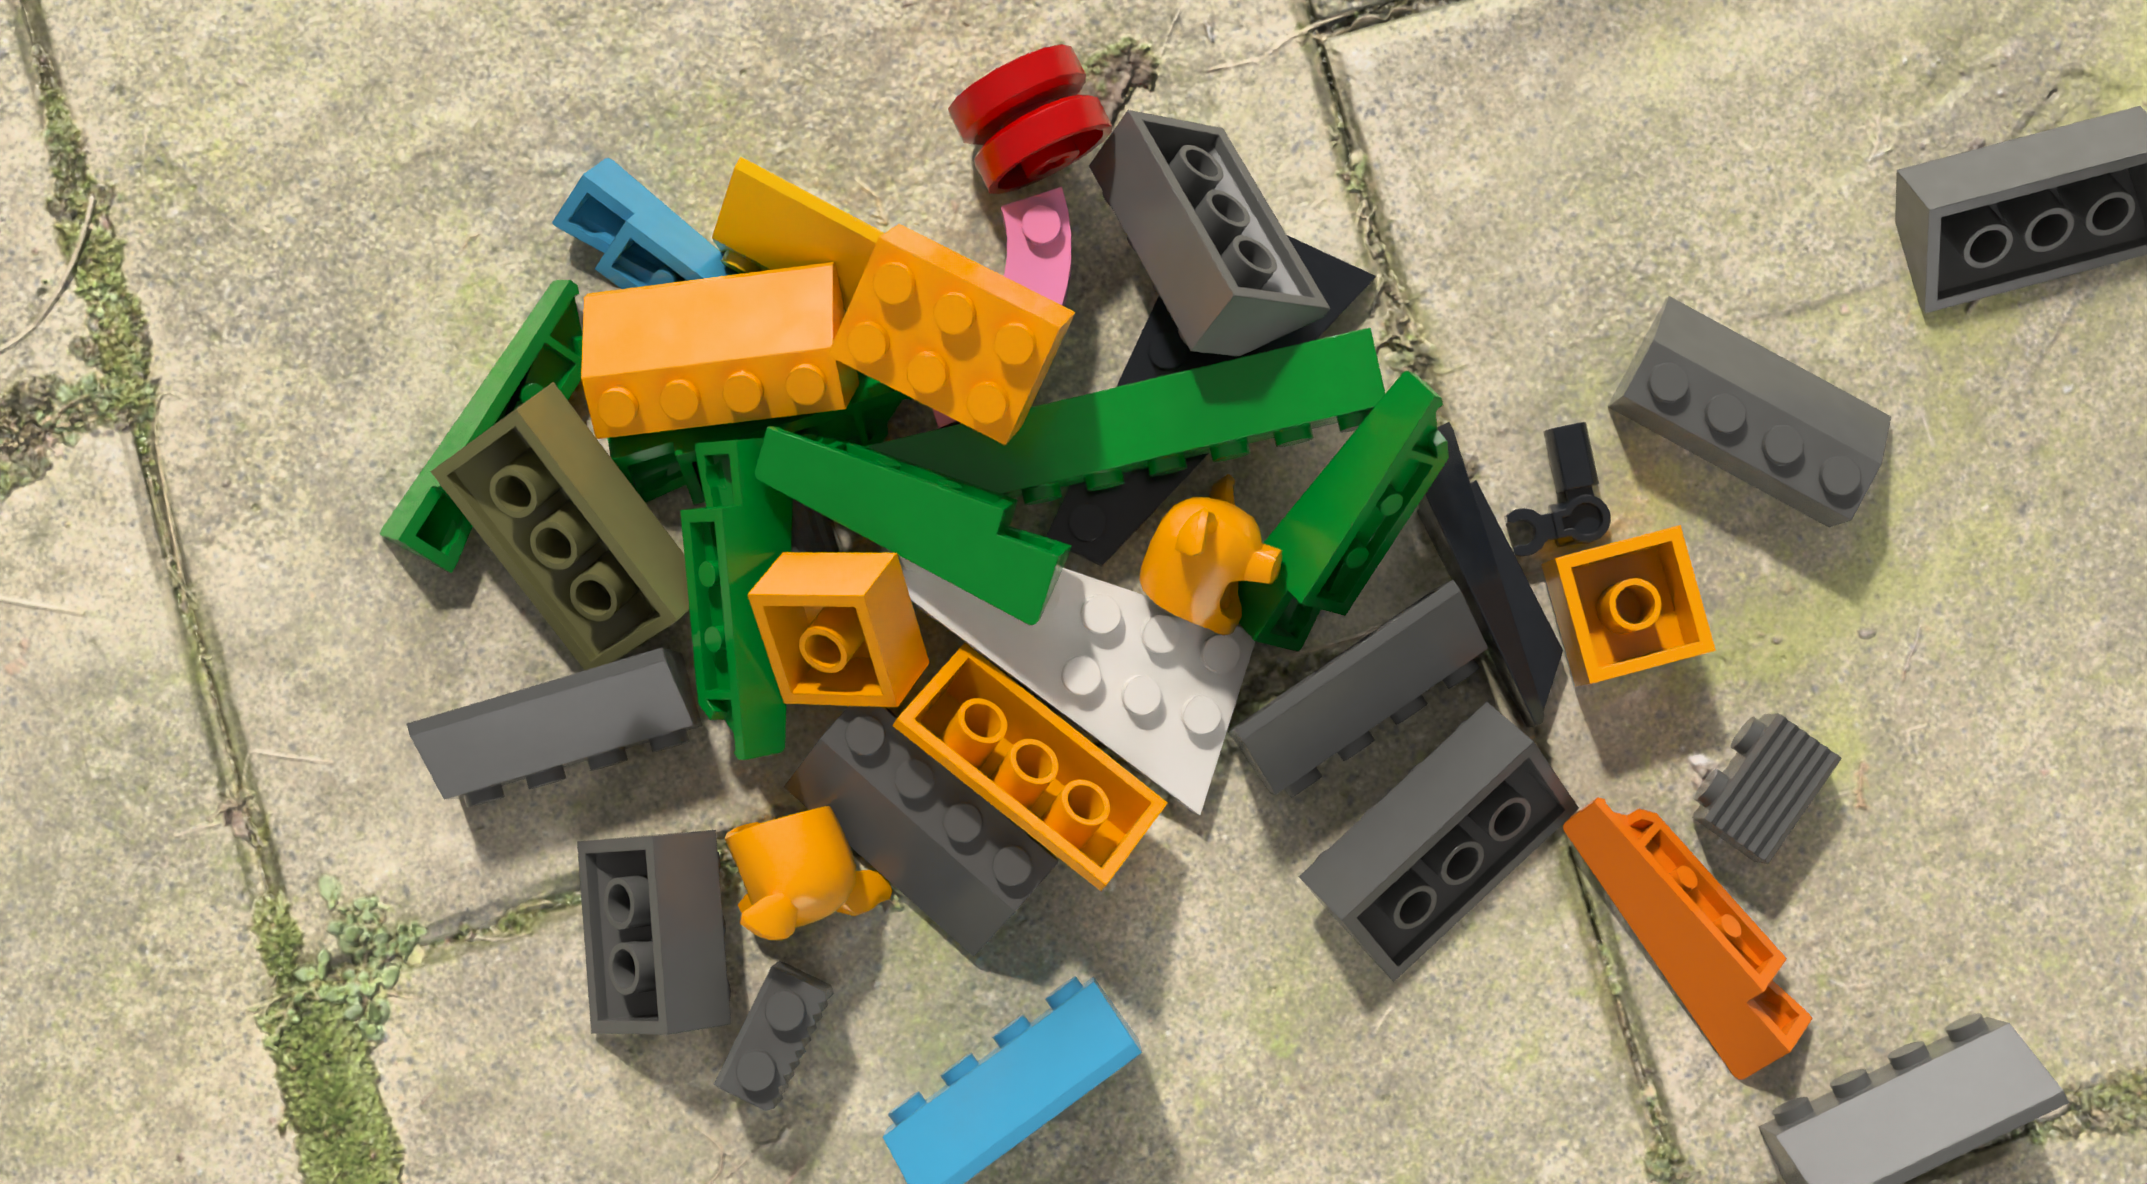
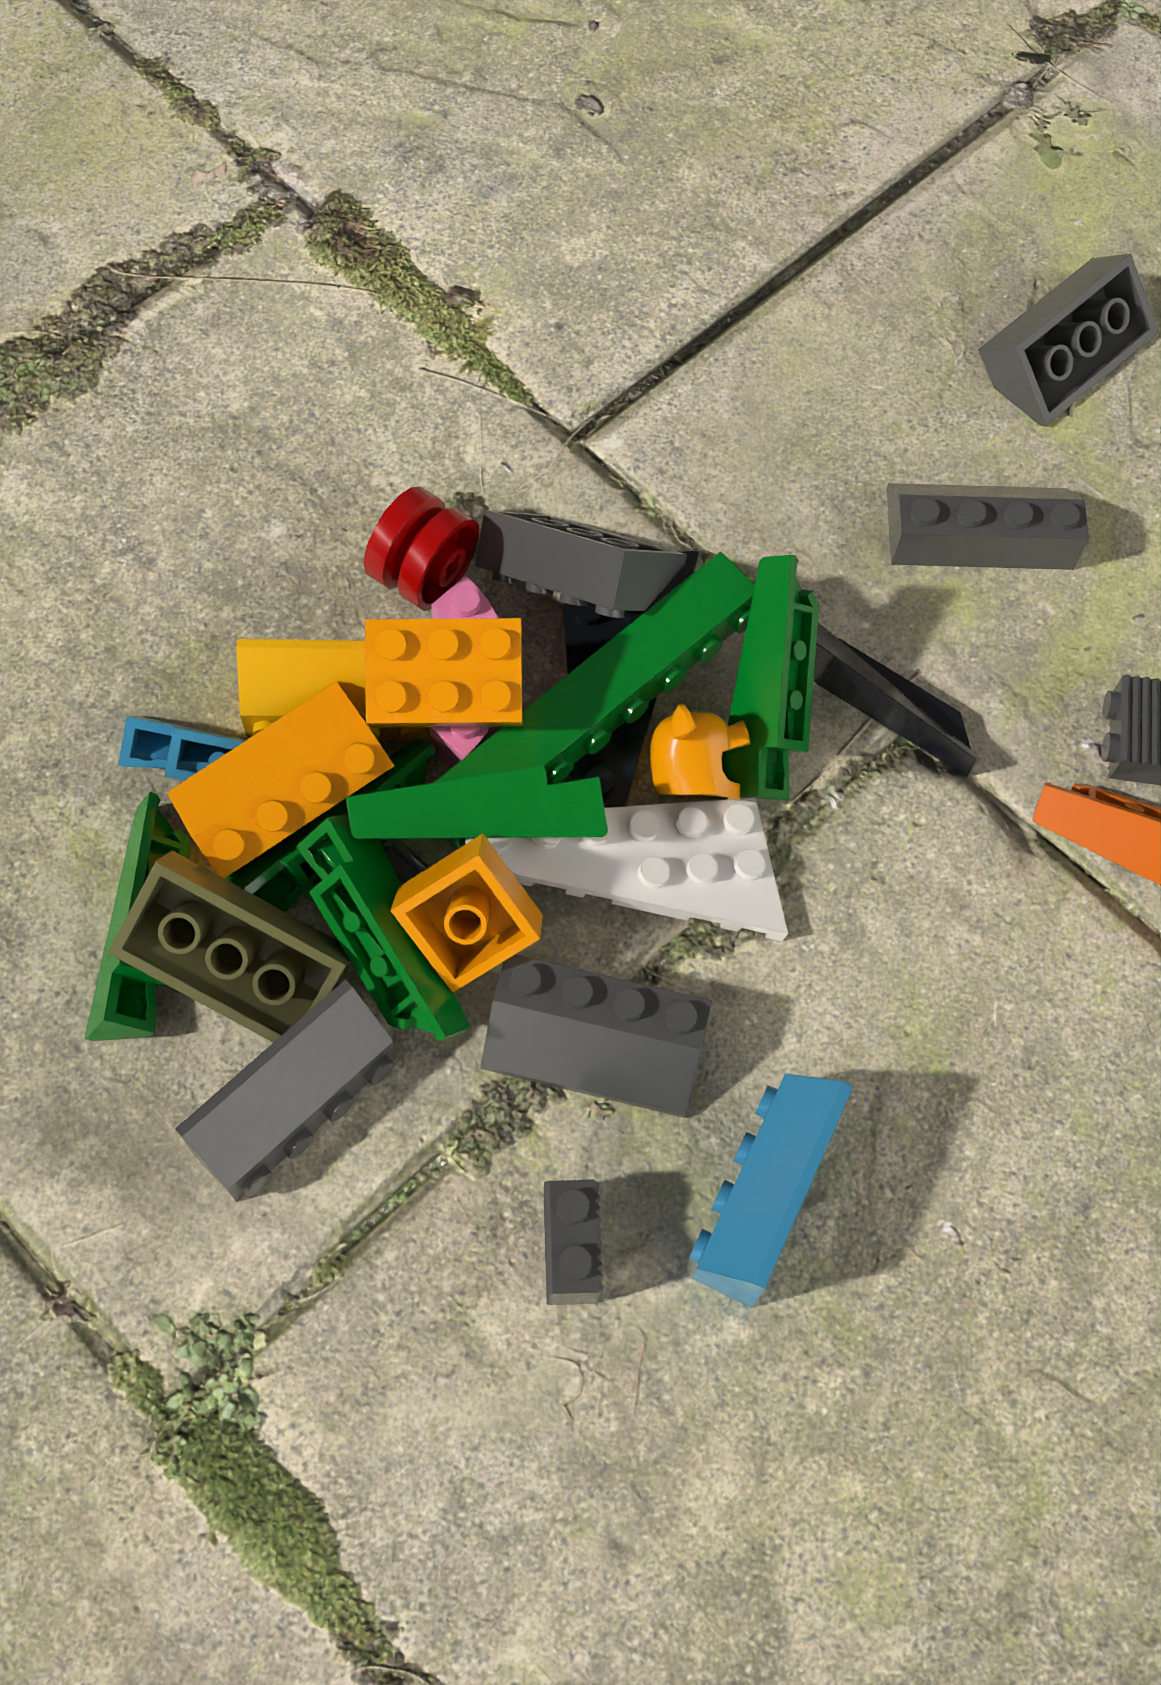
camera: 30 degrees left, 20 degrees down
(654, 933) = (438, 1216): dark grey slope -> none
(800, 873) = (525, 1107): light orange piece -> none
(1031, 765) = (656, 947): light orange slope -> none
(1360, 689) = (844, 794): dark grey slope -> none
(1440, 840) = (959, 868): dark grey slope -> none
(1574, 472) = (918, 626): black bar -> none
(1628, 606) = (985, 659): light orange brick -> none

